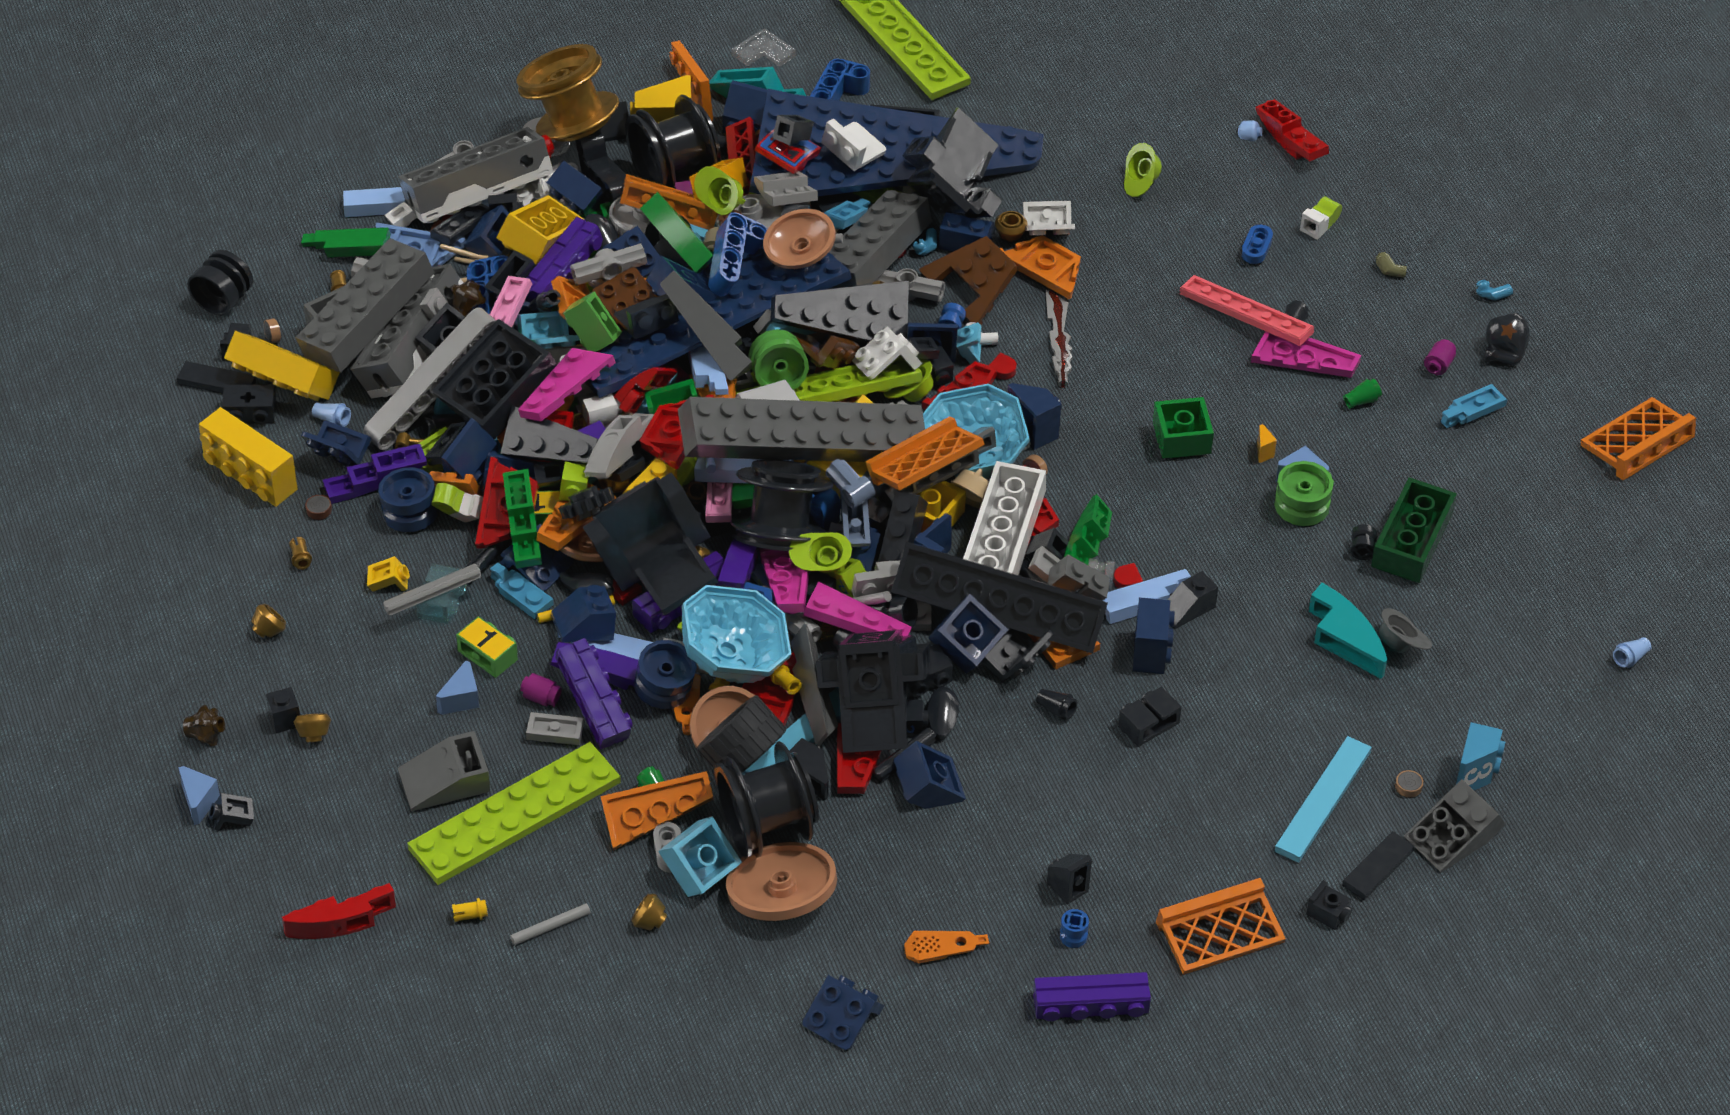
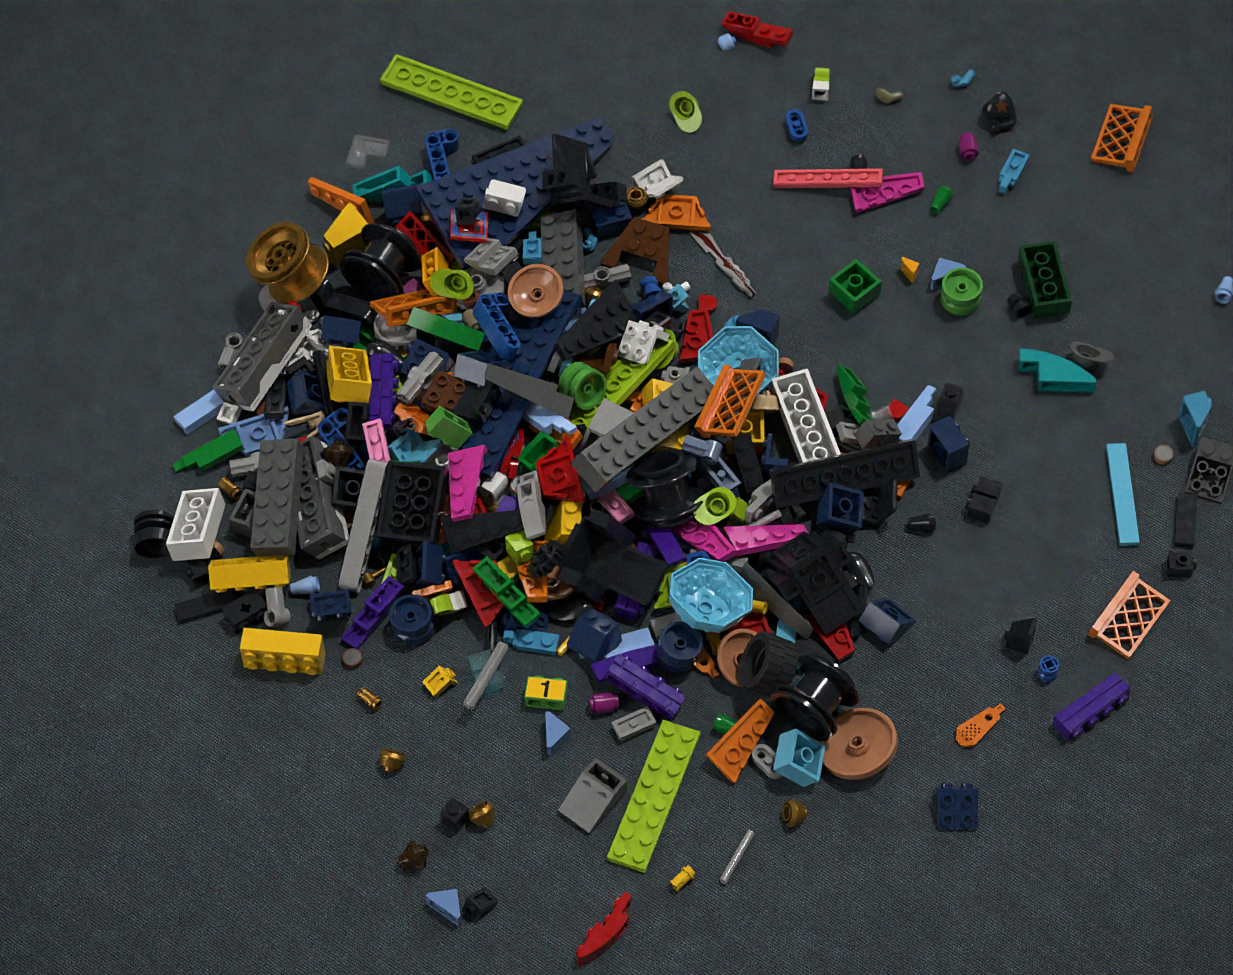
camera: 30 degrees left, 10 degrees up
(266, 293) = (195, 524): none -> white brick
(277, 419) = (277, 613): none -> light grey piece

